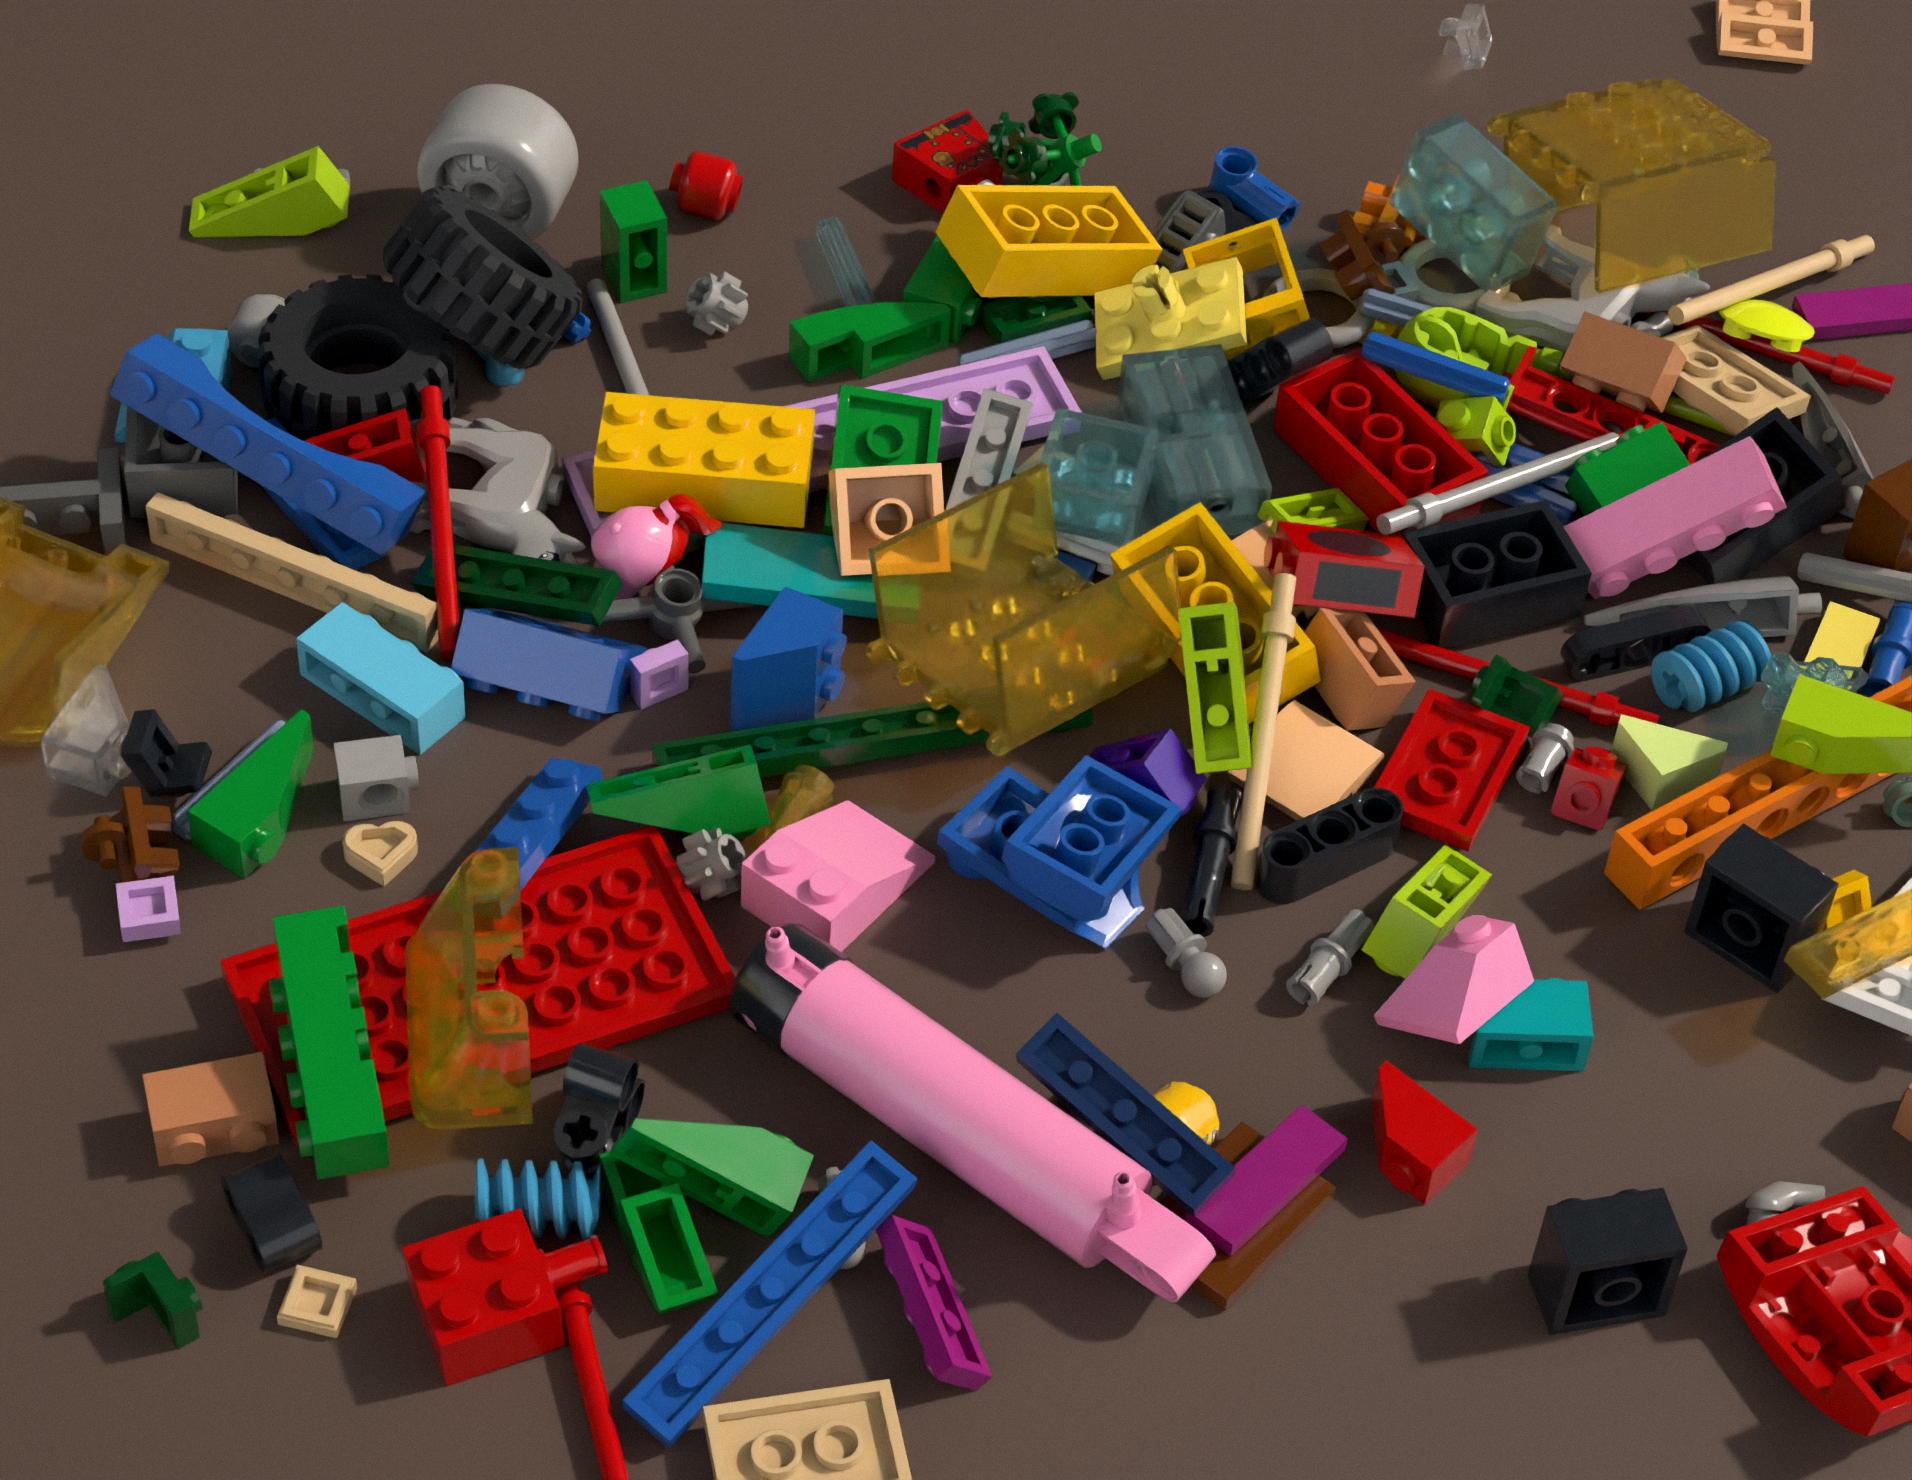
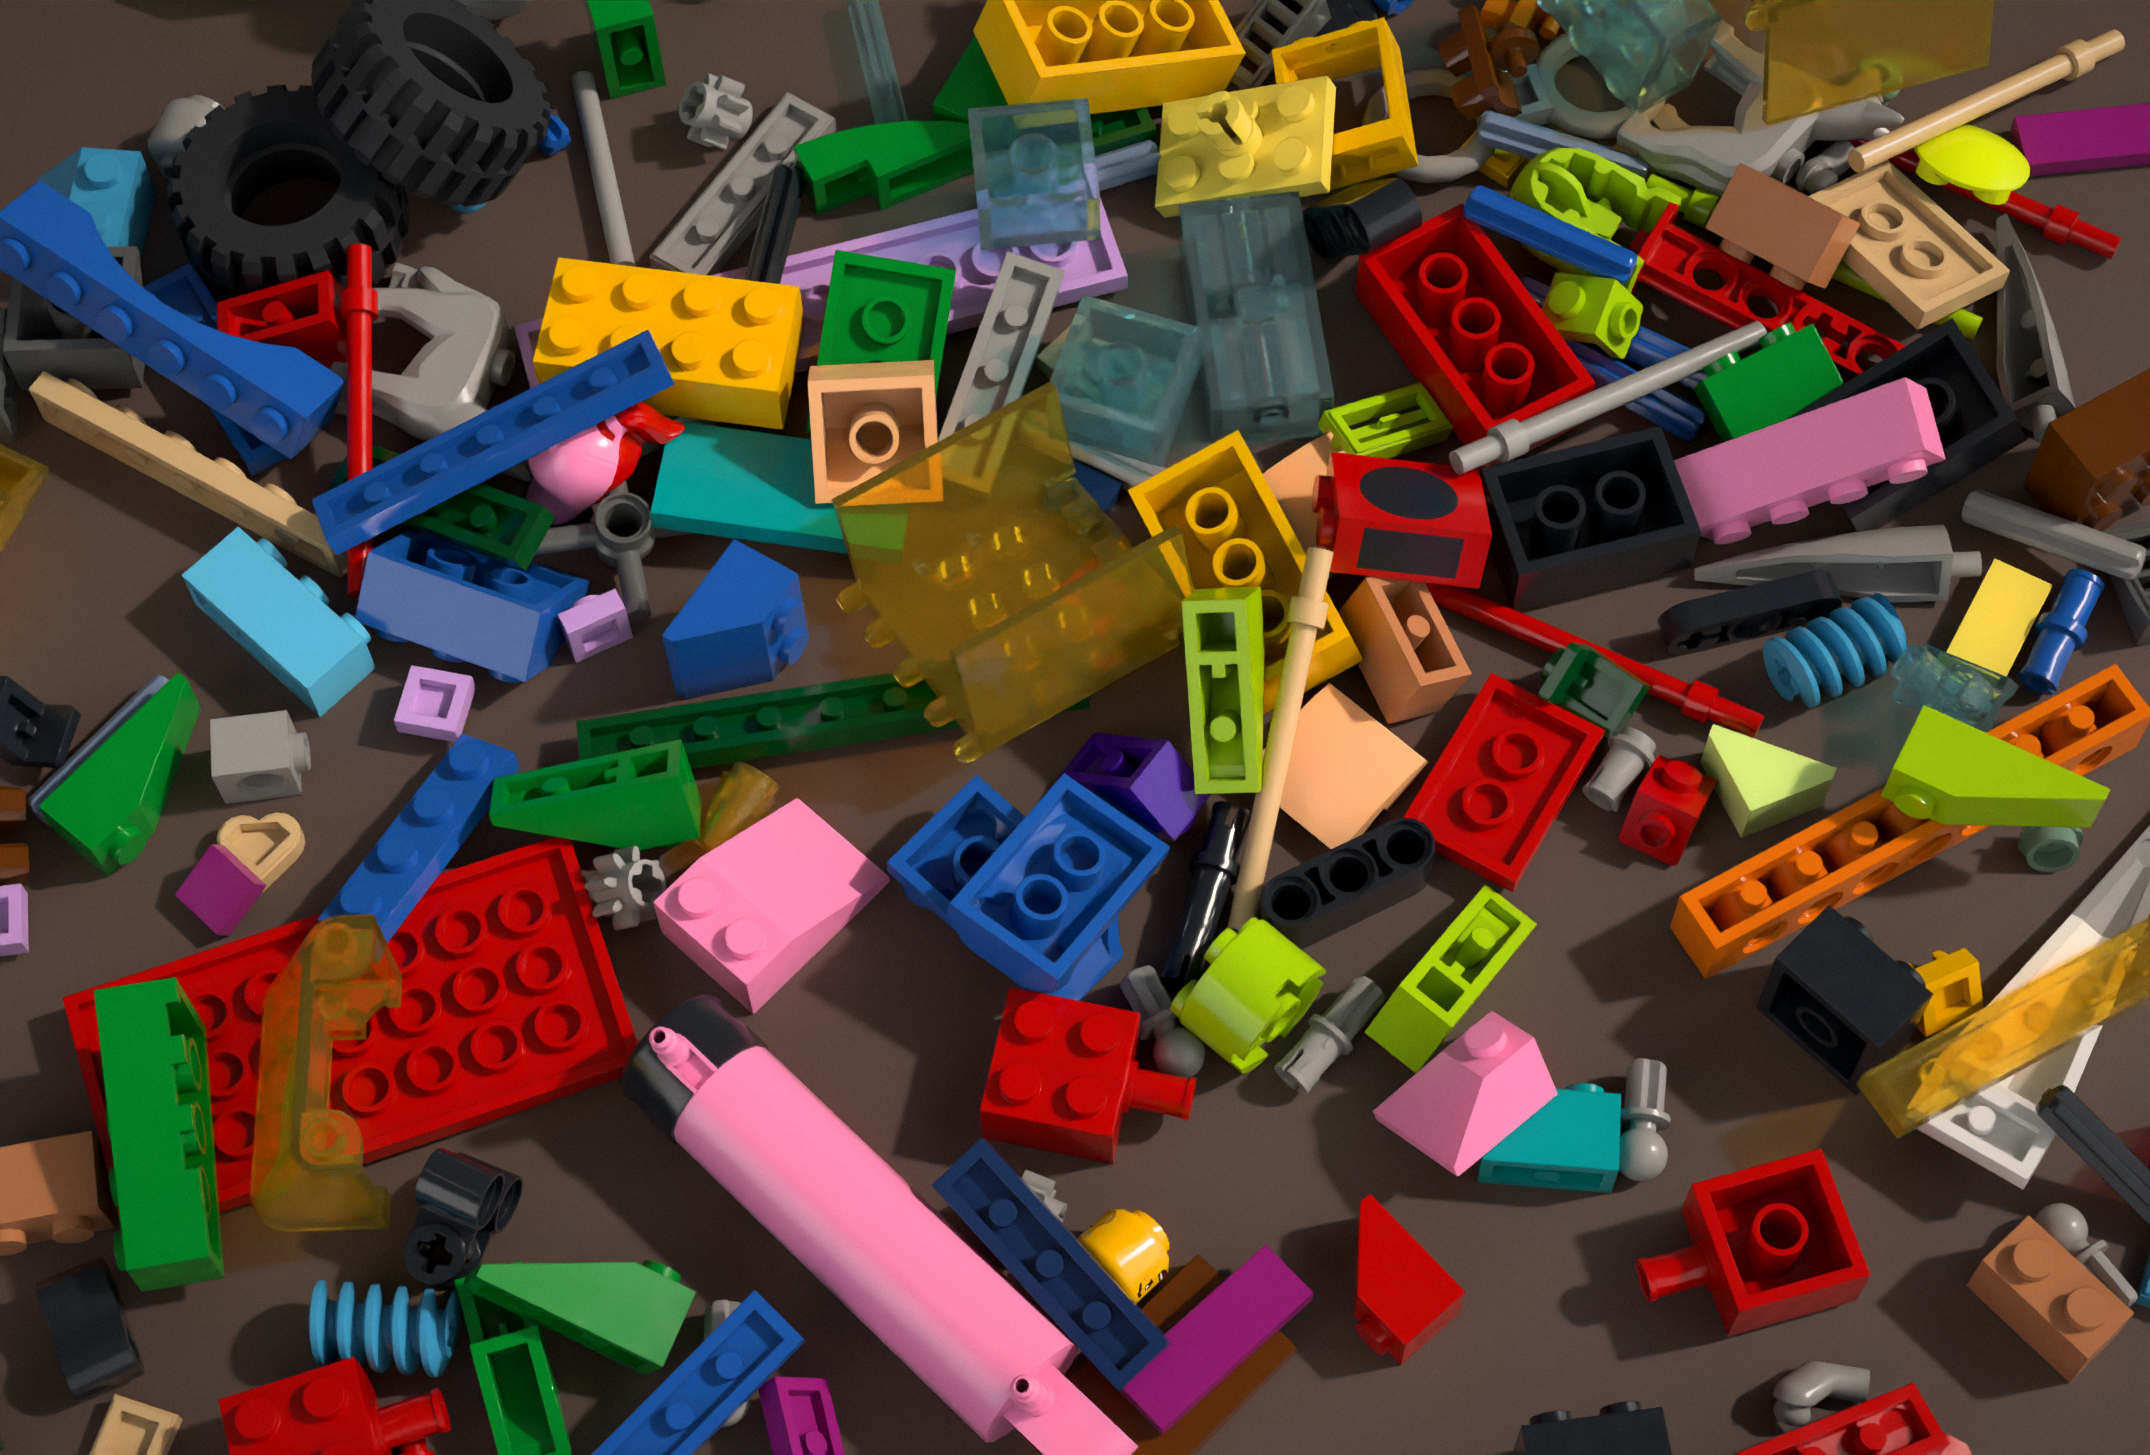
camera: 10 degrees right, 15 degrees up
(351, 878) = (220, 890): none -> magenta tile
(524, 736) = (434, 703): none -> lavender plate
(566, 523) = (492, 442): none -> blue plate
(751, 354) = (736, 197): none -> light grey tile
(781, 373) = (776, 225): none -> black axle
(999, 332) = (1034, 174): none -> clear light blue brick
(1118, 987) = (1070, 1075): none -> red brick
(1261, 918) = (1249, 993): none -> lime brick
(1607, 1010) = (1641, 1148): none -> light grey axle
(1723, 1090) = (1764, 1245): none -> red brick

